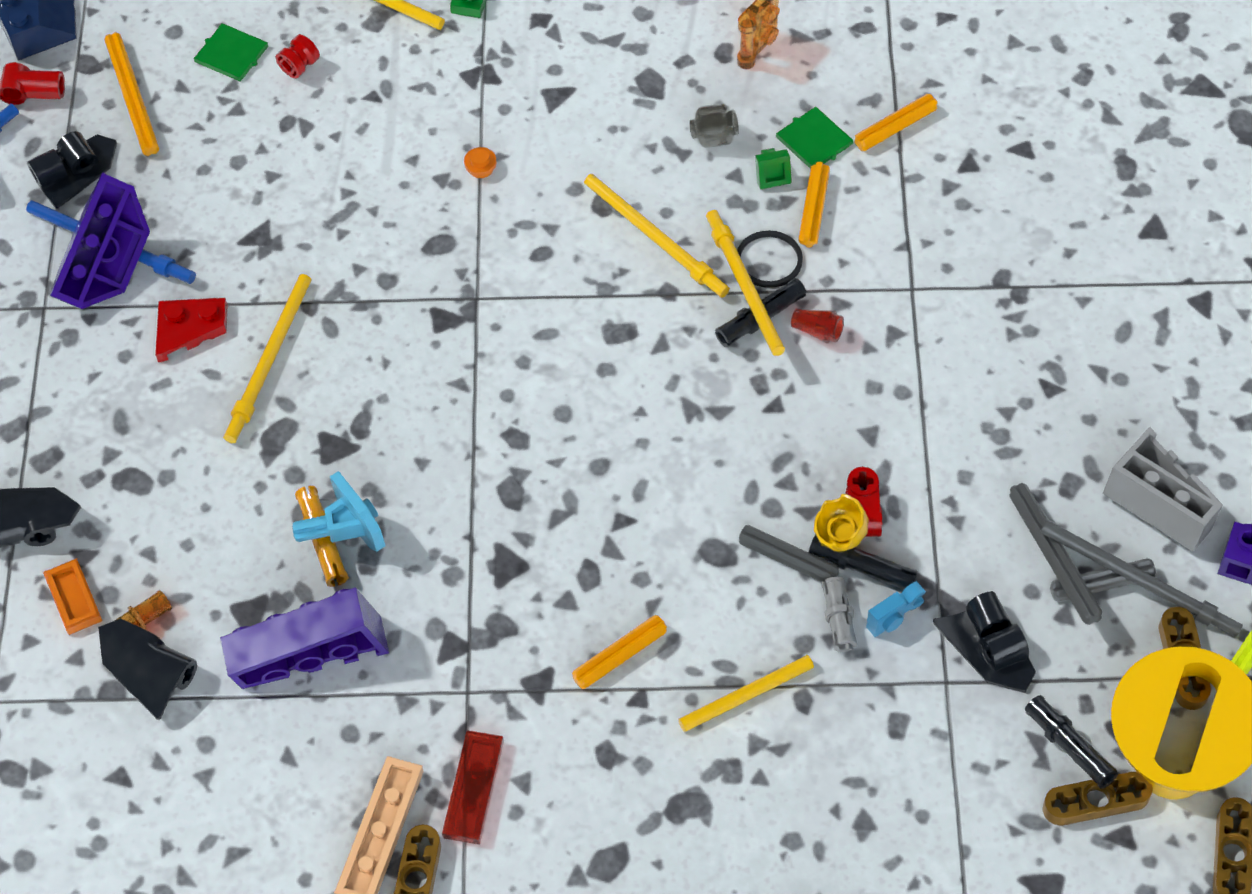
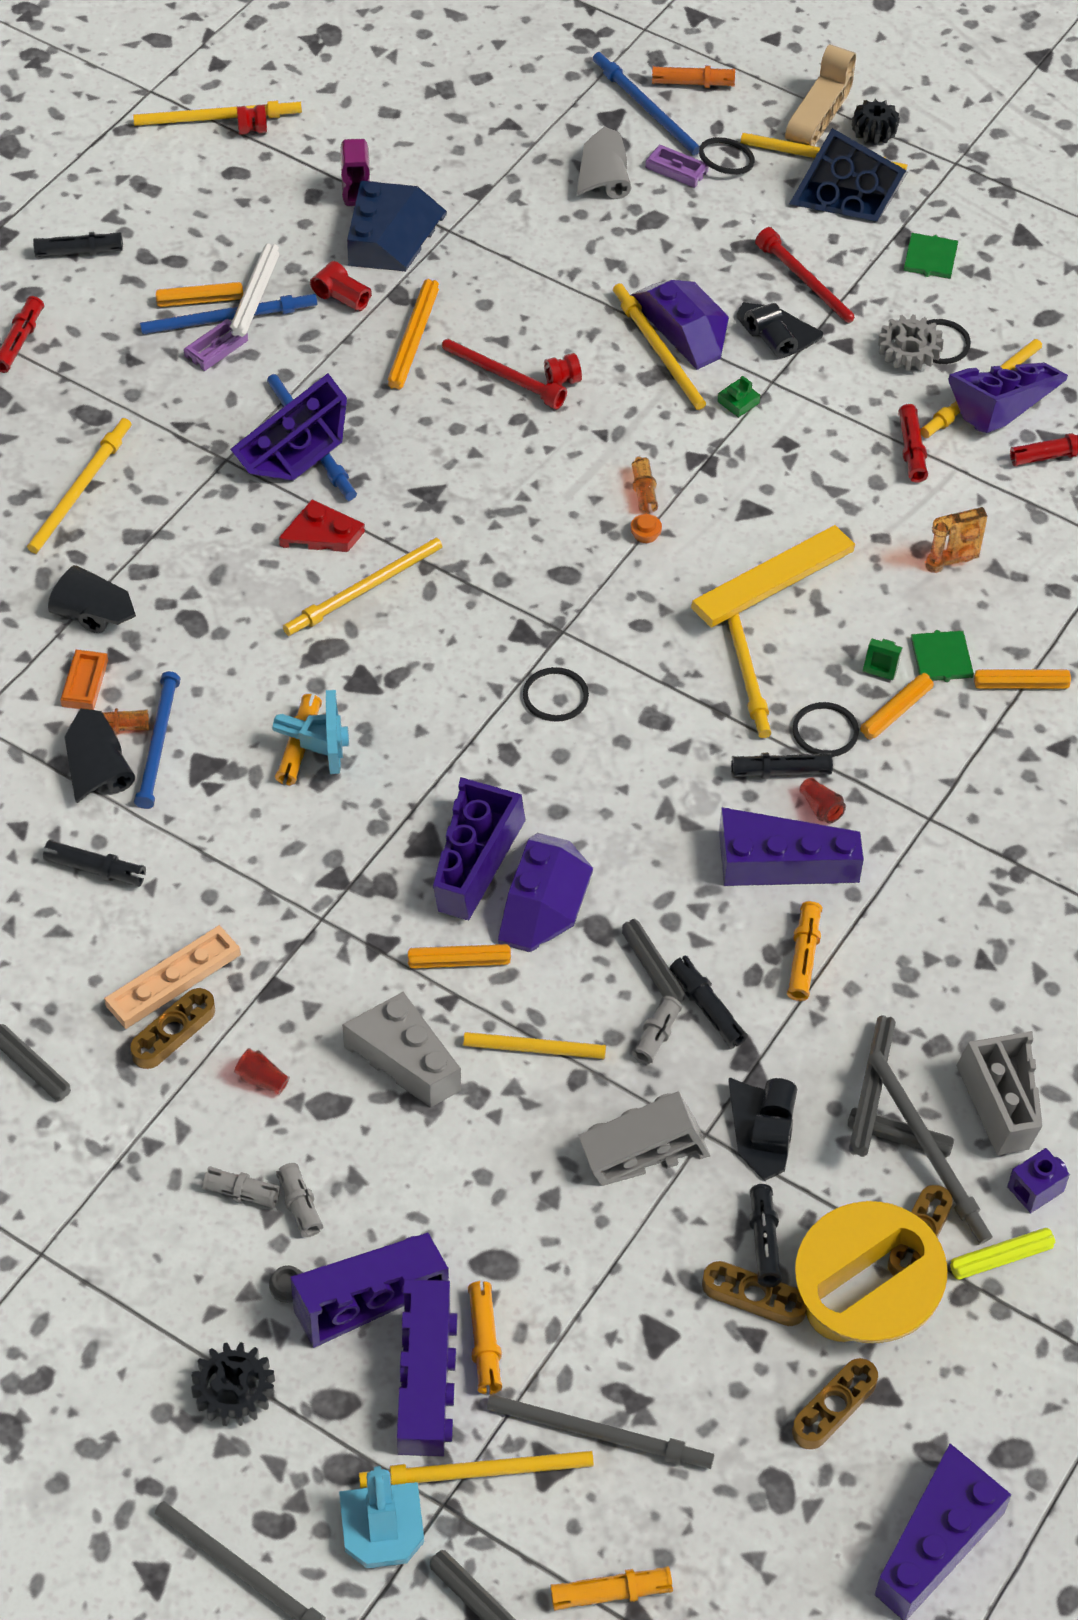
camera: 30 degrees right, 5 degrees down
(72, 166) = (335, 357): black panel -> none
(157, 551) = (145, 798): none -> blue bar
(221, 767) = (107, 866): none -> black pin
(231, 52) = (516, 342): green piece -> none
(302, 84) = (552, 394): none -> red piece
(304, 639) = (225, 806): dark purple wedge -> none
(449, 123) = (644, 485): none -> clear orange axle
(473, 787) = (268, 988): clear red tile -> none
(516, 333) = (555, 670): none -> black piece
(530, 870) = (260, 1071): none -> clear red cone
(558, 532) = (476, 844): none -> dark purple wedge
(624, 146) = (772, 576): none -> yellow tile
(644, 767) = (406, 1048): none -> light grey wedge
(651, 547) = (544, 893): none -> dark purple wedge
(714, 125) = (861, 599): clear smoke head -> none
(724, 239) = (797, 693): yellow bar -> none
(824, 388) = (786, 851): none -> dark purple wedge
(841, 523) = (705, 956): yellow hair -> none
(868, 497) = (742, 957): red piece -> none
(890, 612) = (701, 1050): dark azure plate -> none
(900, 455) = (806, 938): none -> light orange pin
(908, 721) = (643, 1139): none -> light grey wedge

